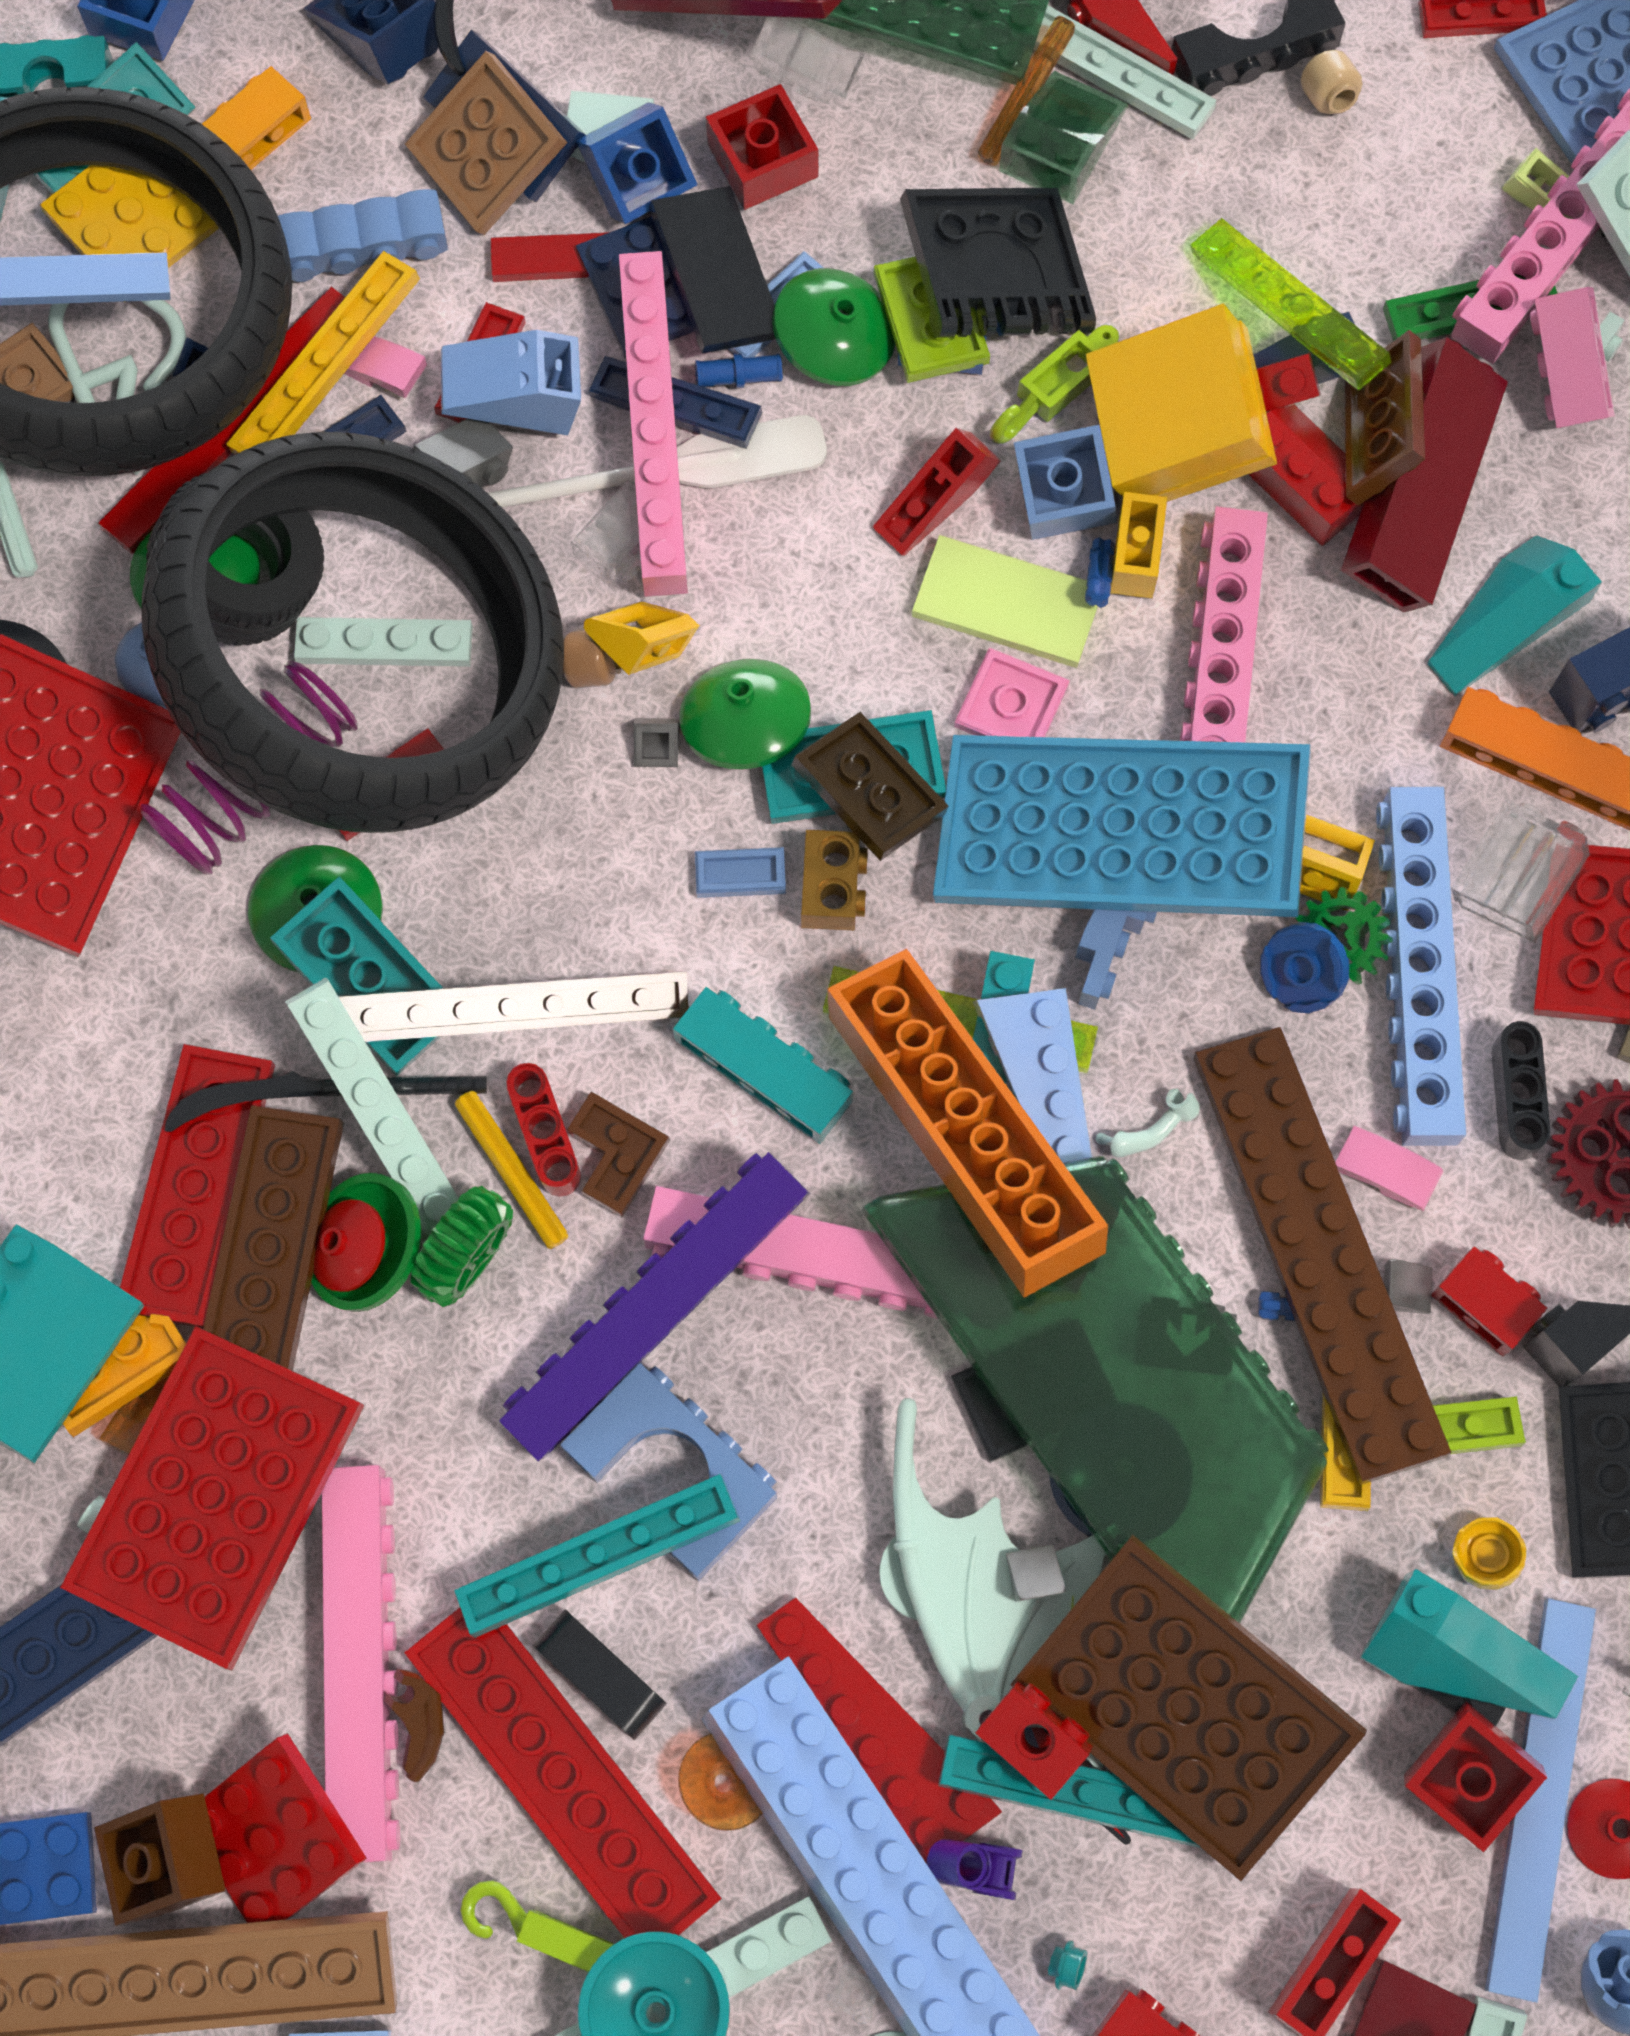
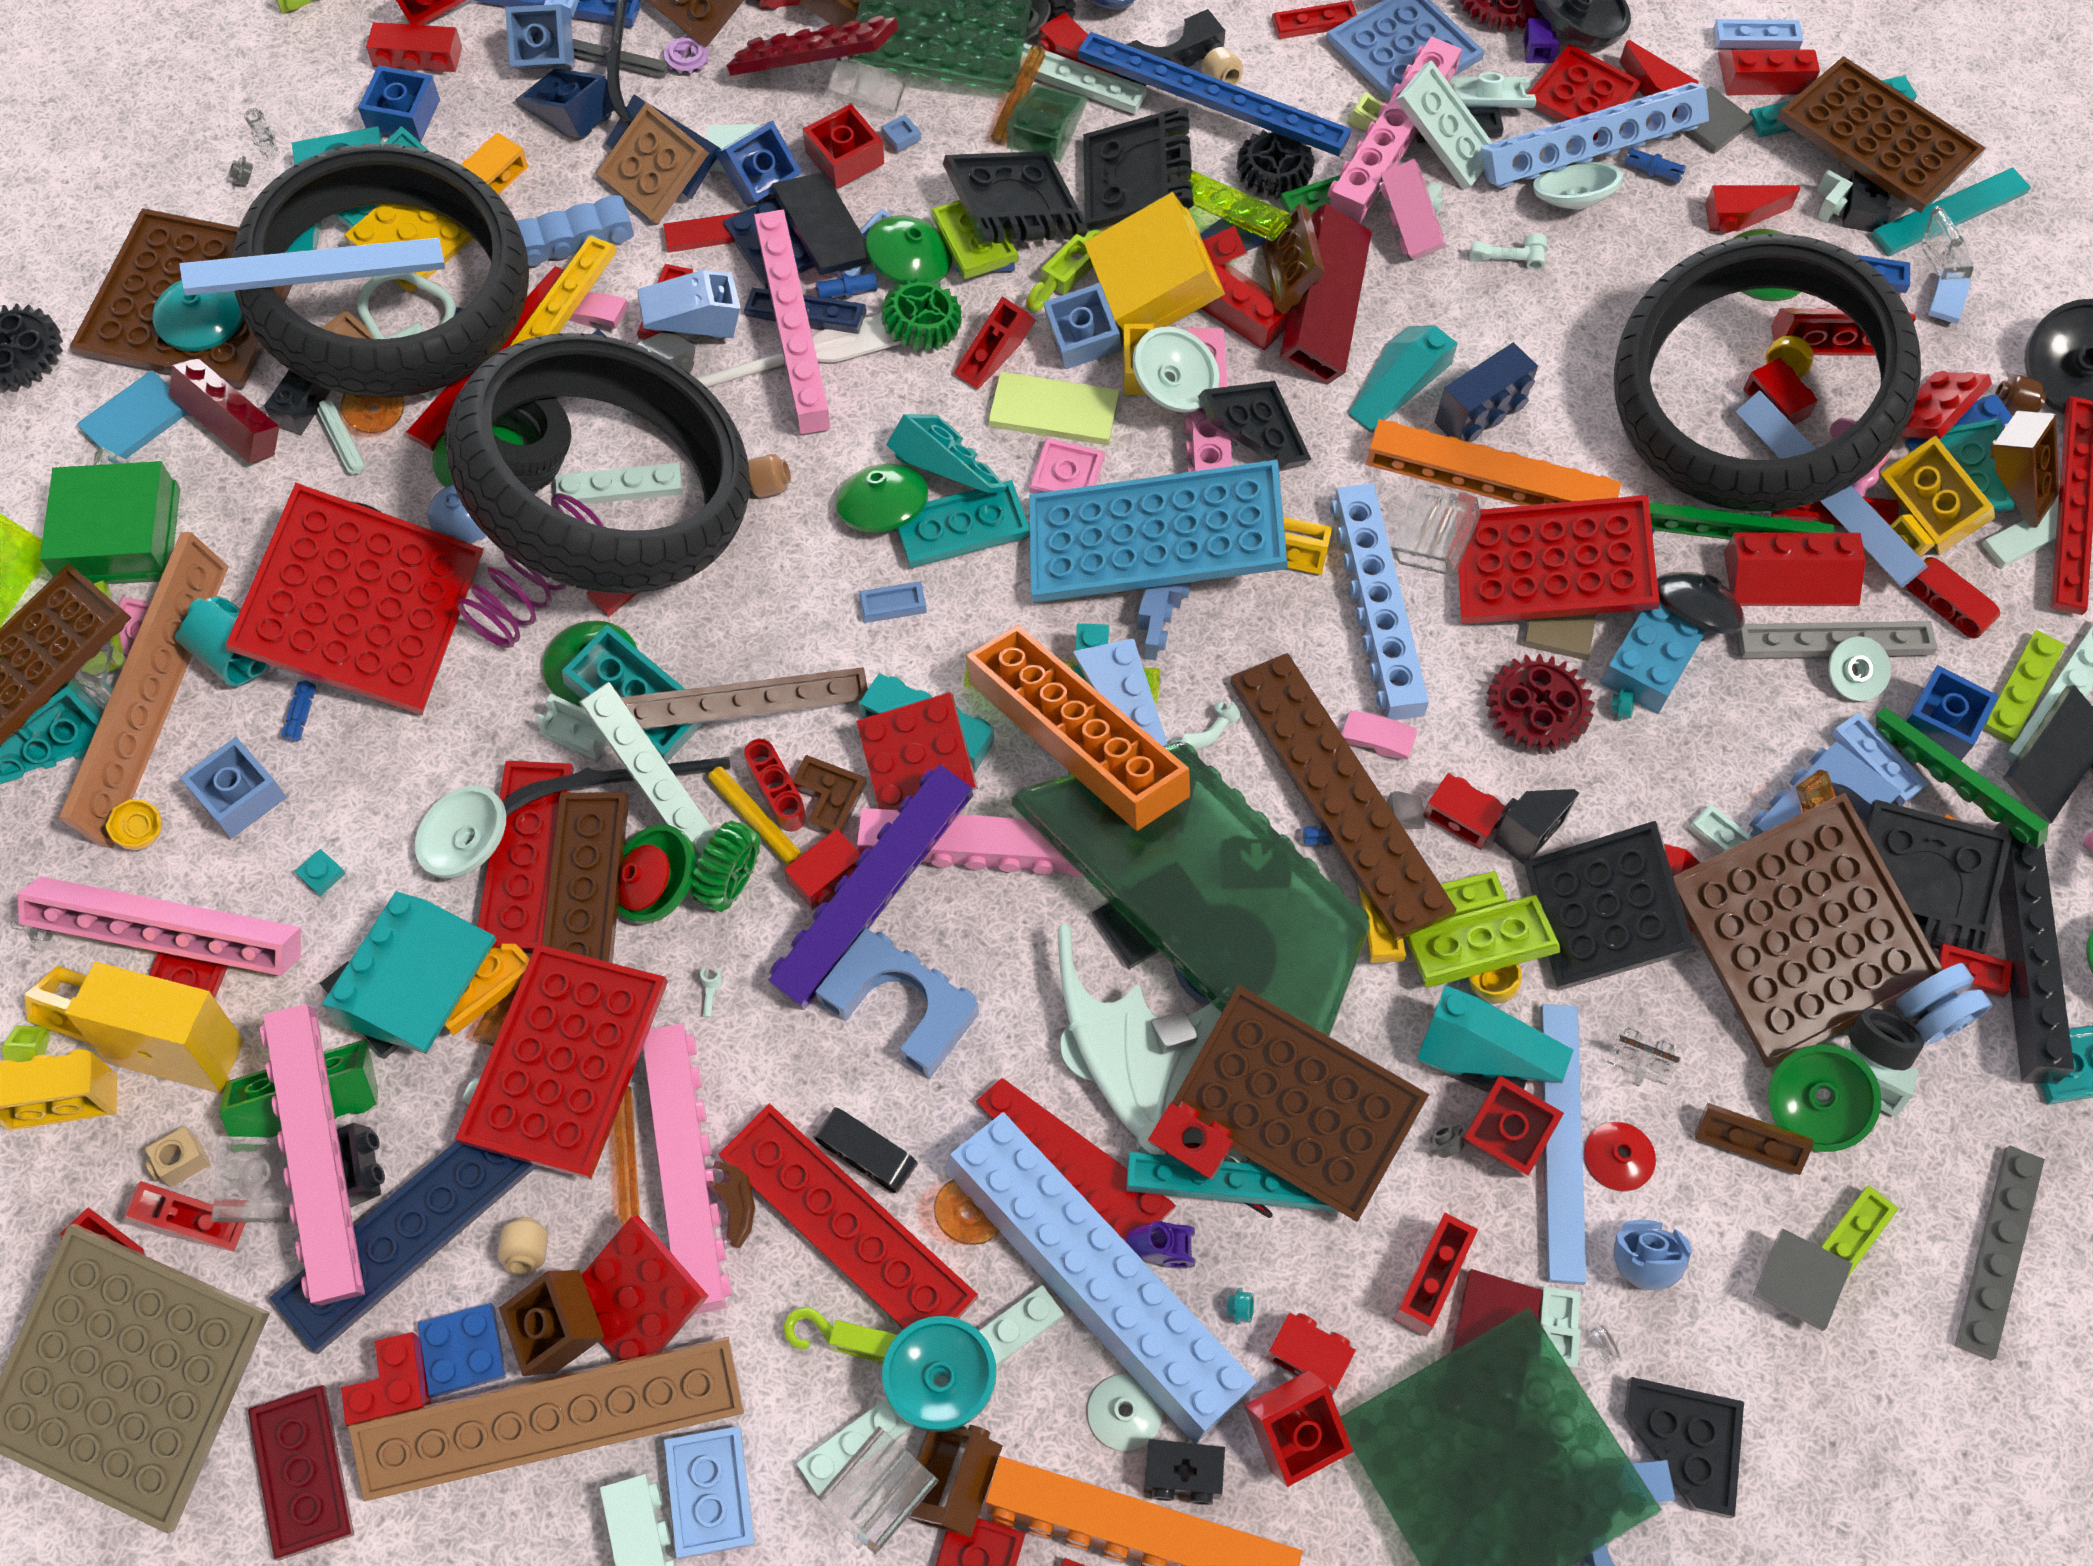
camera: 10 degrees left, 10 degrees down
(41, 499) = (357, 413): none -> clear orange dish
(99, 1132) = (460, 832): none -> light aqua dish
(135, 1741) = (522, 1246): none -> tan head
(264, 1001) = (571, 728): none -> light aqua hinge
(283, 1643) = (626, 1159): none -> clear orange axle
(421, 1413) = (710, 987): none -> light aqua hand
(595, 1264) = (821, 869): none -> red brick
(596, 1556) = (852, 1061): teal plate -> none
(611, 539) = (771, 400): clear slope -> none
(636, 649) = (803, 455): yellow tile -> none
(656, 742) = (821, 526): flat silver slope -> none
(737, 1106) = (909, 742): none -> red plate
(826, 880) = (956, 597): pearl gold brick -> none
(830, 646) = (937, 447): none -> teal wedge
(848, 131) = (901, 133): none -> medium blue plate
(850, 453) = (921, 315): none -> green gear
(870, 785) = (976, 528): dark brown plate -> none
(1100, 572) = (1115, 380): blue axle -> none
(1175, 234) = (1136, 166): none -> black hinge
(1203, 566) = (1174, 368): none -> light aqua dish
(1293, 666) = (1258, 419): none -> black plate
(1304, 967) = (1298, 610): blue tile -> none
(1312, 131) = (1215, 94): none -> blue plate
(1355, 926) = (1318, 602): green gear -> none
(1362, 256) = (1274, 164): none -> black gear
(1382, 1777) = (1447, 1141): none -> dark grey plate
(1482, 1500) = (1483, 941): none -> lime tile
(1529, 1071) = (1461, 685): black beam -> none

